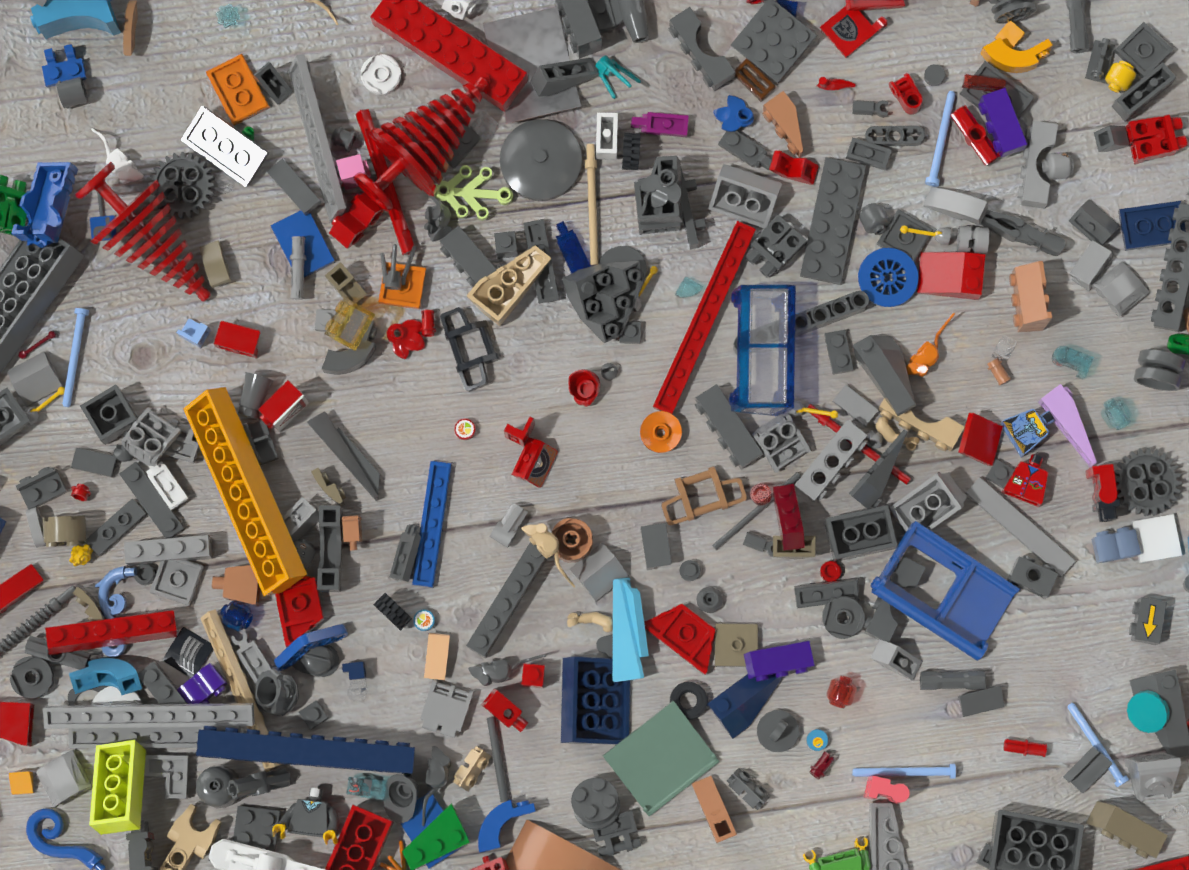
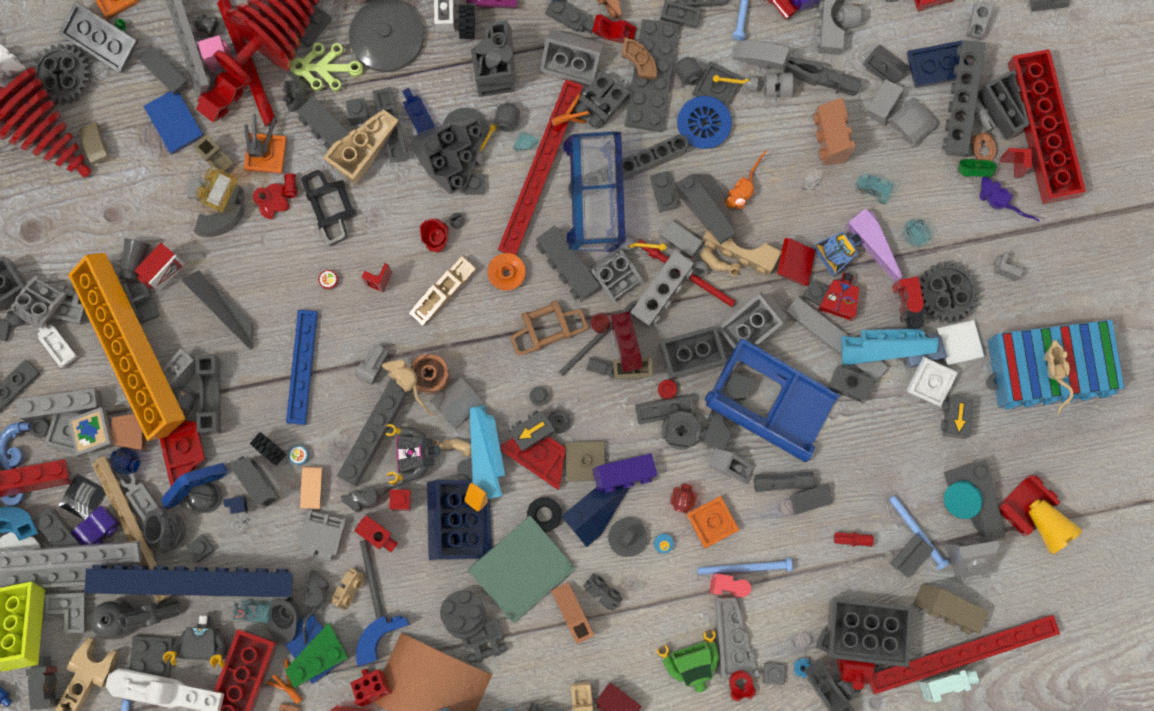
camera: 10 degrees left, 0 degrees up
(151, 501) = (43, 361): dark grey plate -> none
(194, 332) = (77, 206): light blue panel -> none
(201, 581) = (90, 431): none -> tile
(237, 339) = (116, 209): red panel -> none
(297, 272) = (168, 142): light grey pin -> none
(332, 491) = (208, 341): dark tan slope -> none
(352, 530) = (227, 376): nougat piece -> none
(377, 646) = (254, 482): none -> dark grey window
(406, 553) = (279, 395): dark grey hinge -> none
(534, 462) = (393, 305): panel -> none
(550, 626) = (414, 453): none -> dark grey torso
(590, 448) = (443, 290): none -> tan slope
(591, 166) = (431, 38): tan bar -> none
(616, 677) = (476, 497): none -> light orange slope
(656, 546) = (507, 375): dark grey panel -> none
(670, 260) = (507, 117): none -> dark grey head
(680, 609) = (531, 430): none -> dark grey brick
(691, 225) = (524, 85): dark grey hinge -> none
(737, 264) = (567, 117): none -> orange plant
(821, 201) = (640, 58): none -> medium nougat tile
(821, 765) = (669, 567): dark red pin -> none
(871, 720) = (712, 522): none -> orange plate
(874, 481) = (702, 305): dark grey wedge -> none
(951, 274) = (761, 117): slope -> none
(998, 371) = (808, 201): nougat pin -> none
(1073, 536) = (885, 345): none -> medium azure wedge
(1122, 580) = (932, 381): none -> white tile
(1159, 370) = (953, 190): dark grey wheel -> none

